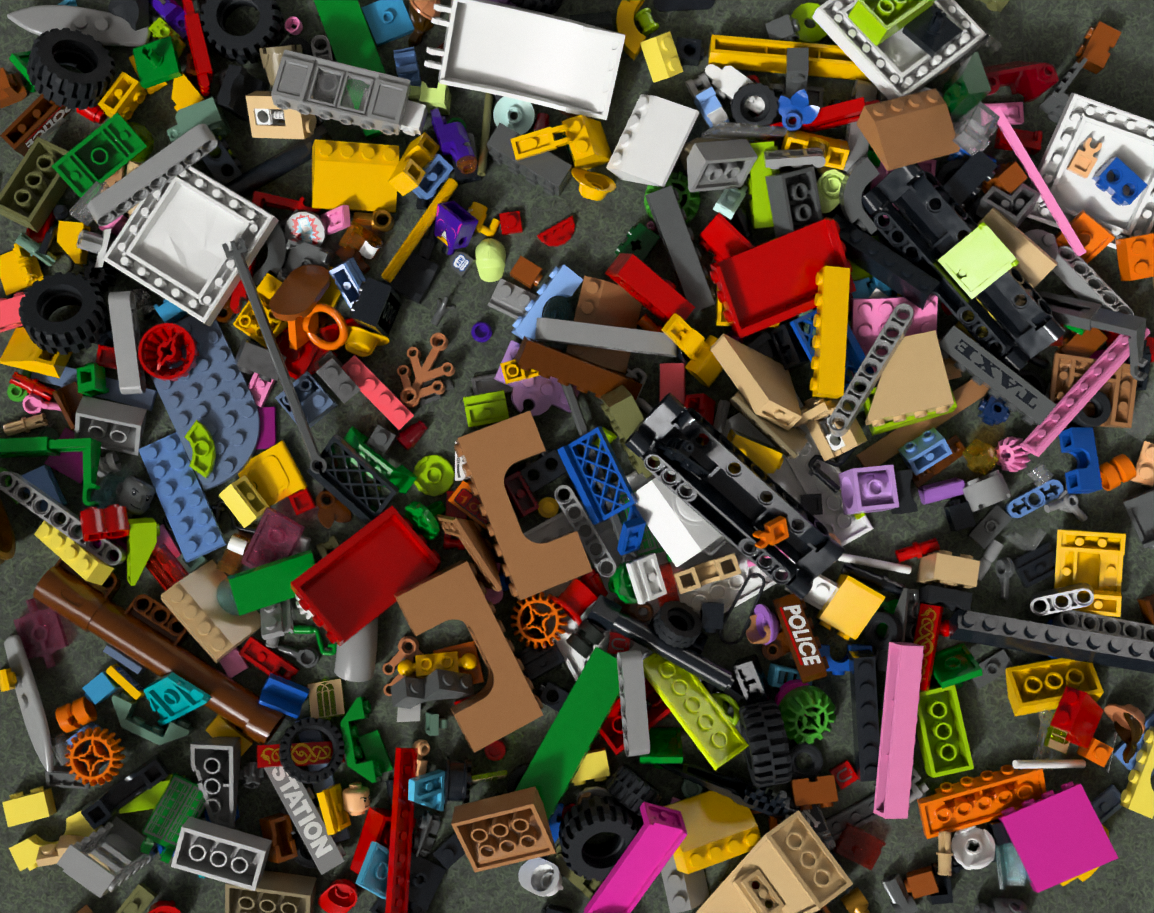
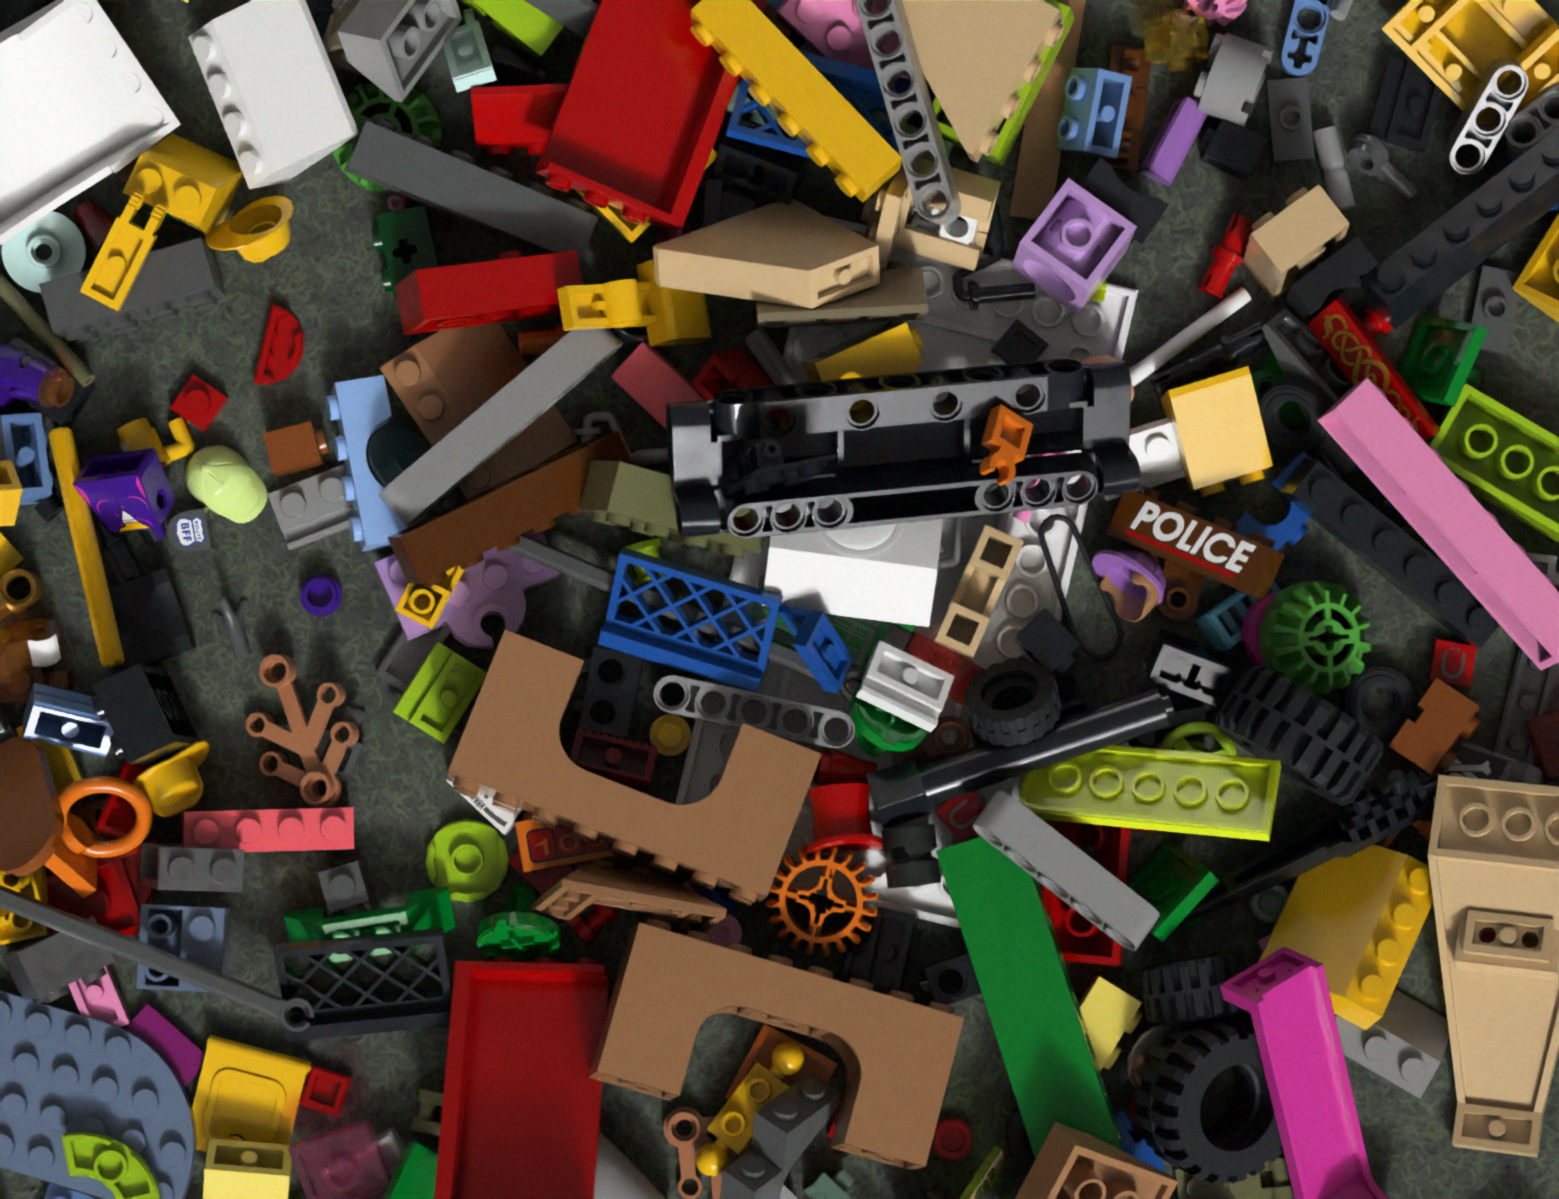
camera: 50 degrees left, 0 degrees up
(333, 511) = (383, 1057): reddish brown plate -> none
(411, 435) = (378, 838): dark red cone -> none
(1028, 540) = (1358, 83): clear panel -> none

